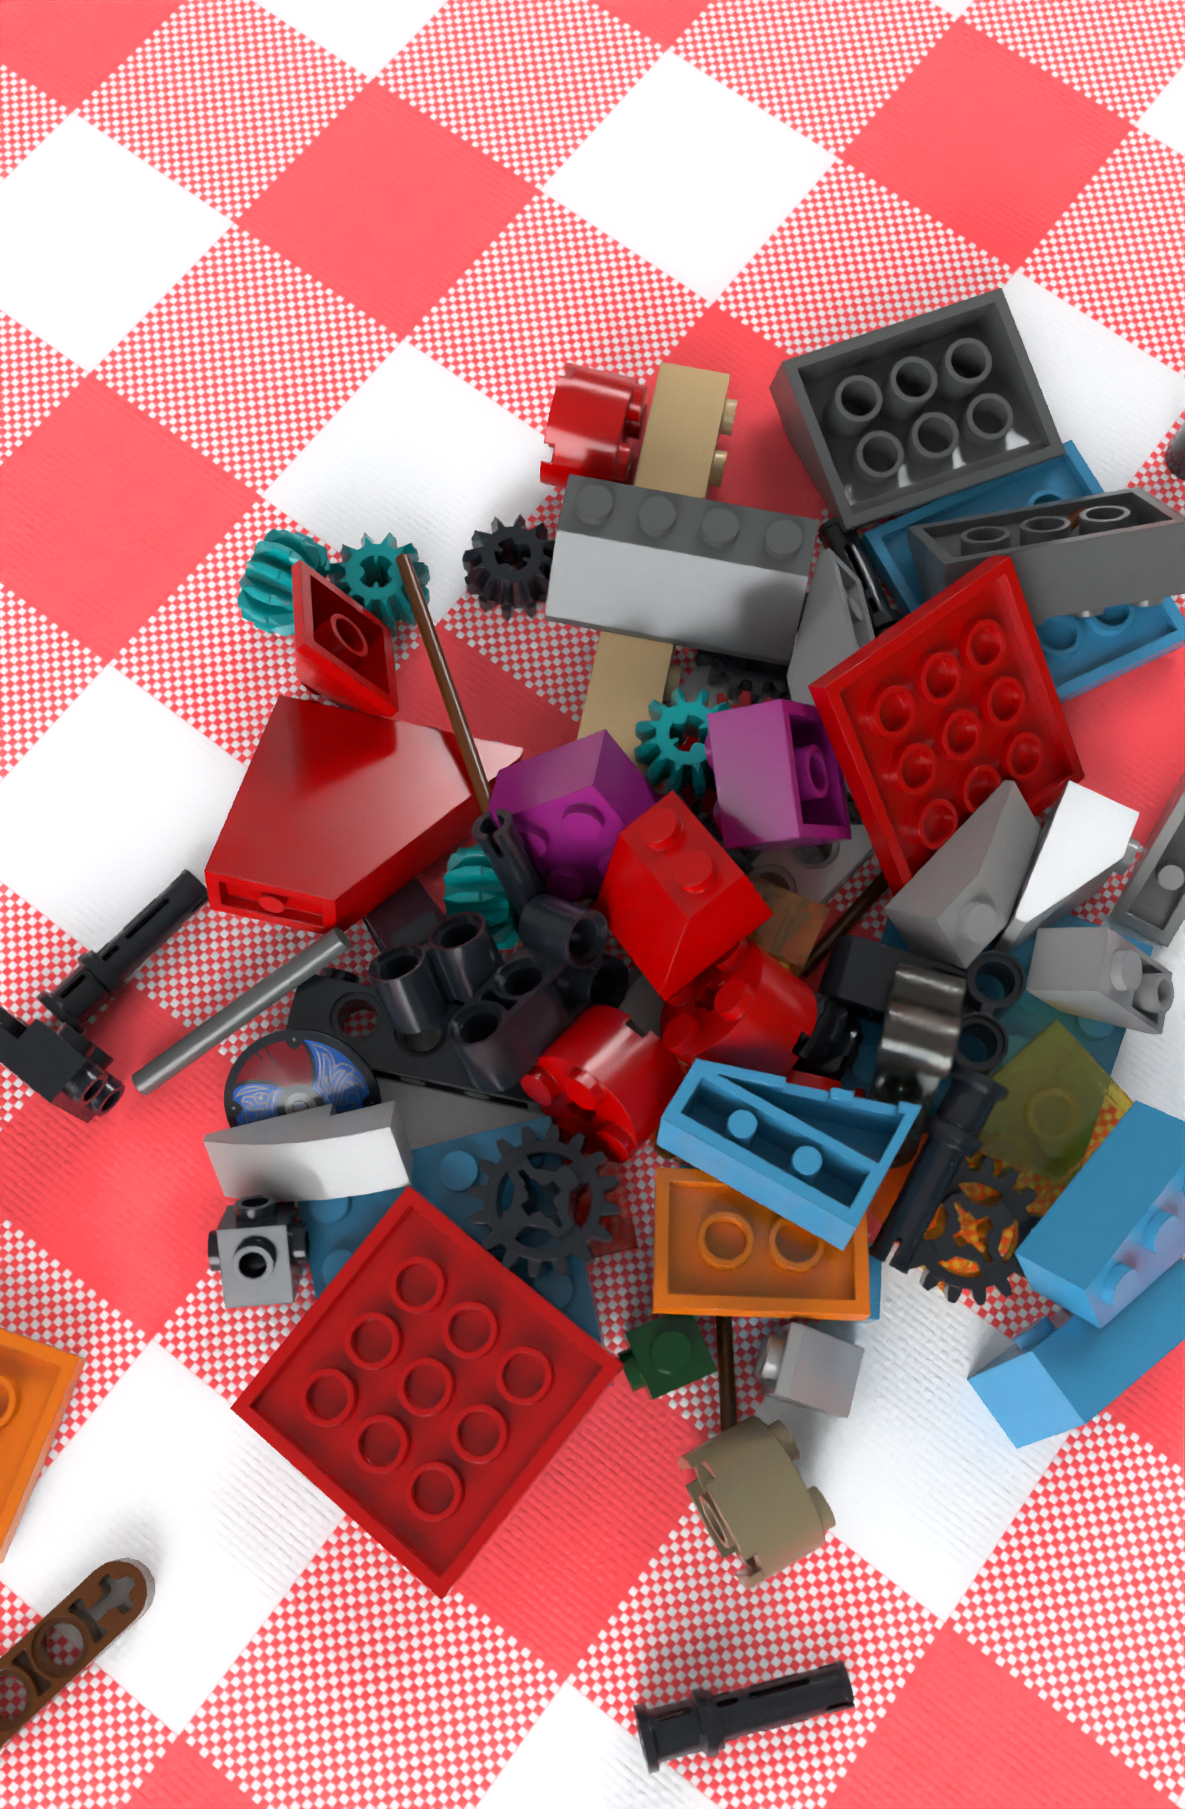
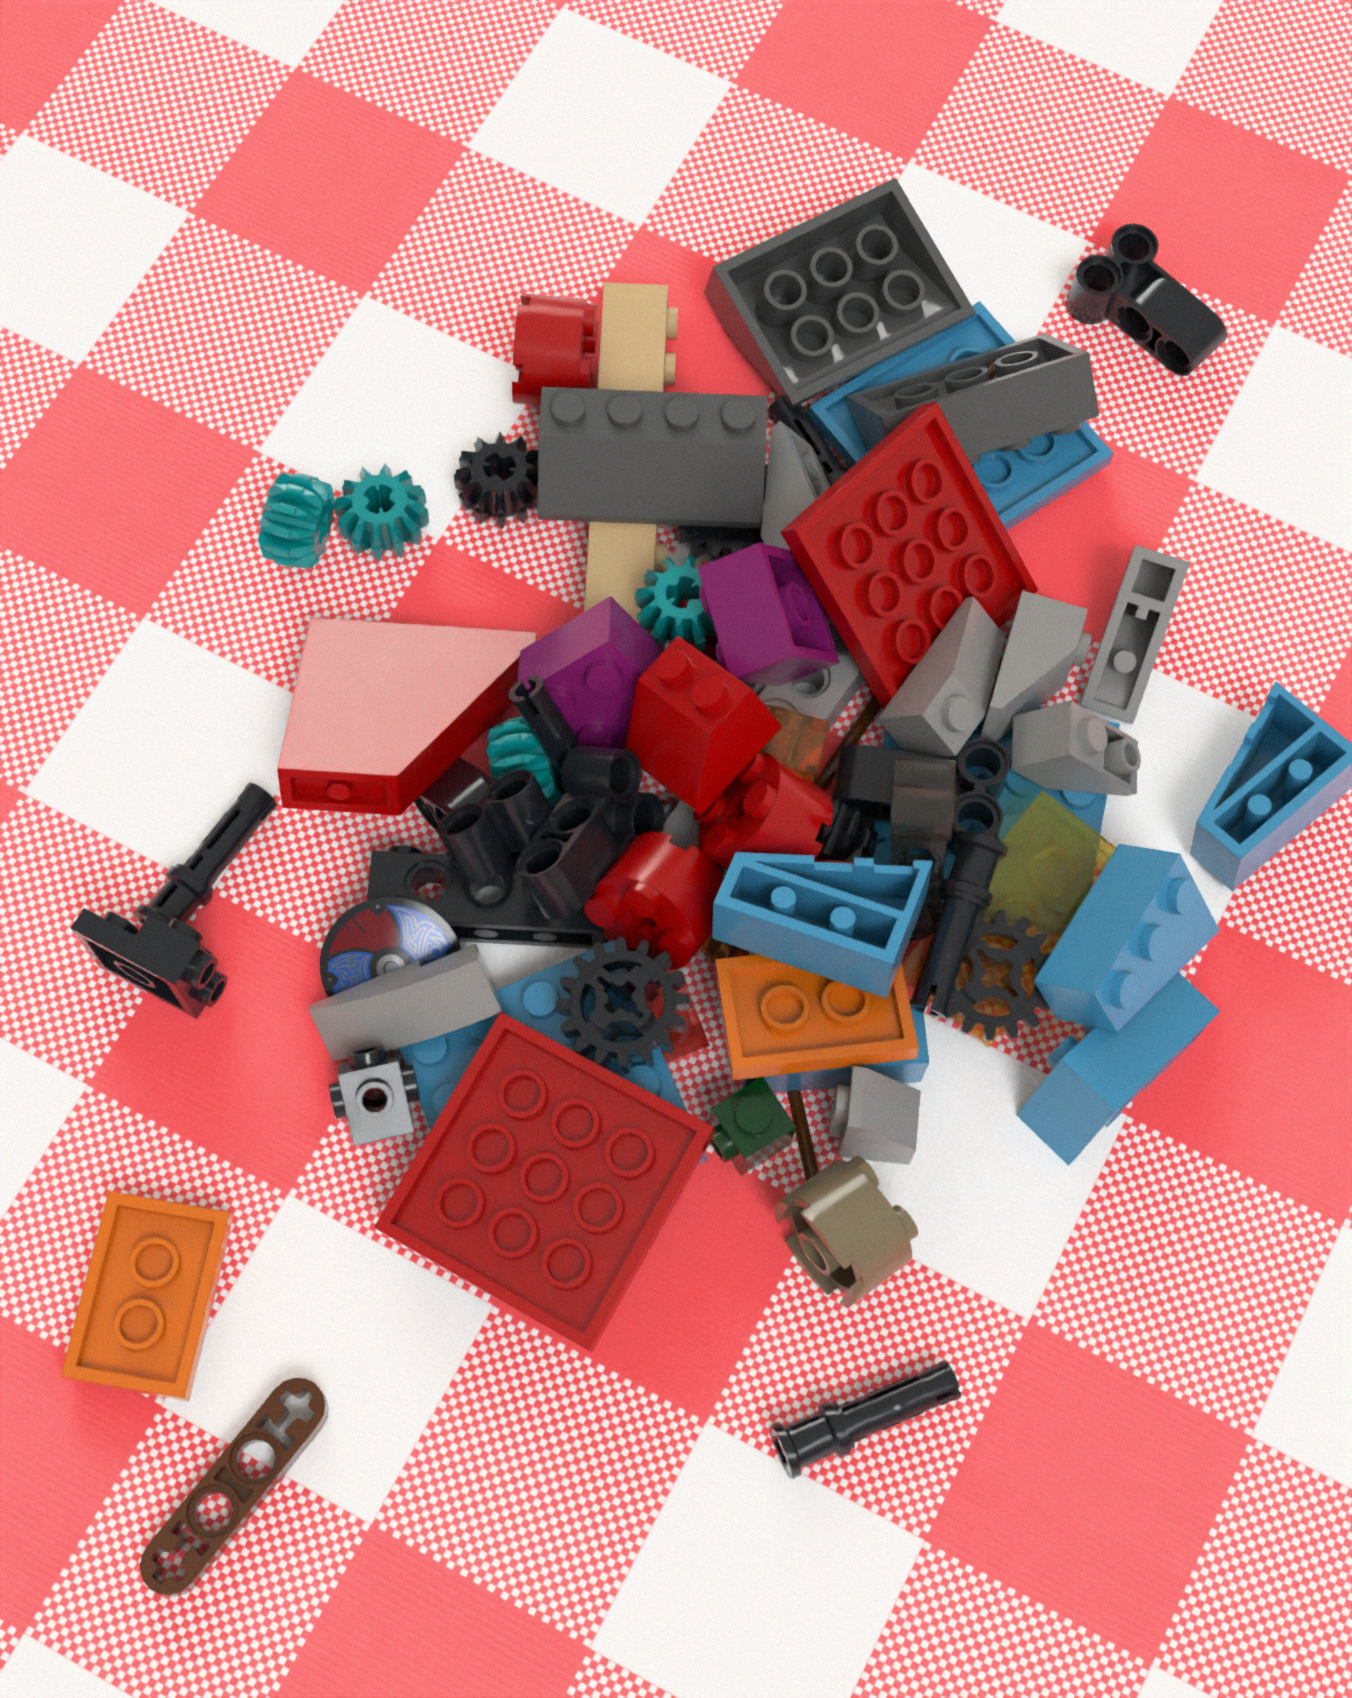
camera: 10 degrees left, 5 degrees down
(241, 1011) = (322, 894): dark grey bar -> none
(341, 647) = (359, 568): red slope -> none
(445, 681) = (458, 582): reddish brown axle -> none

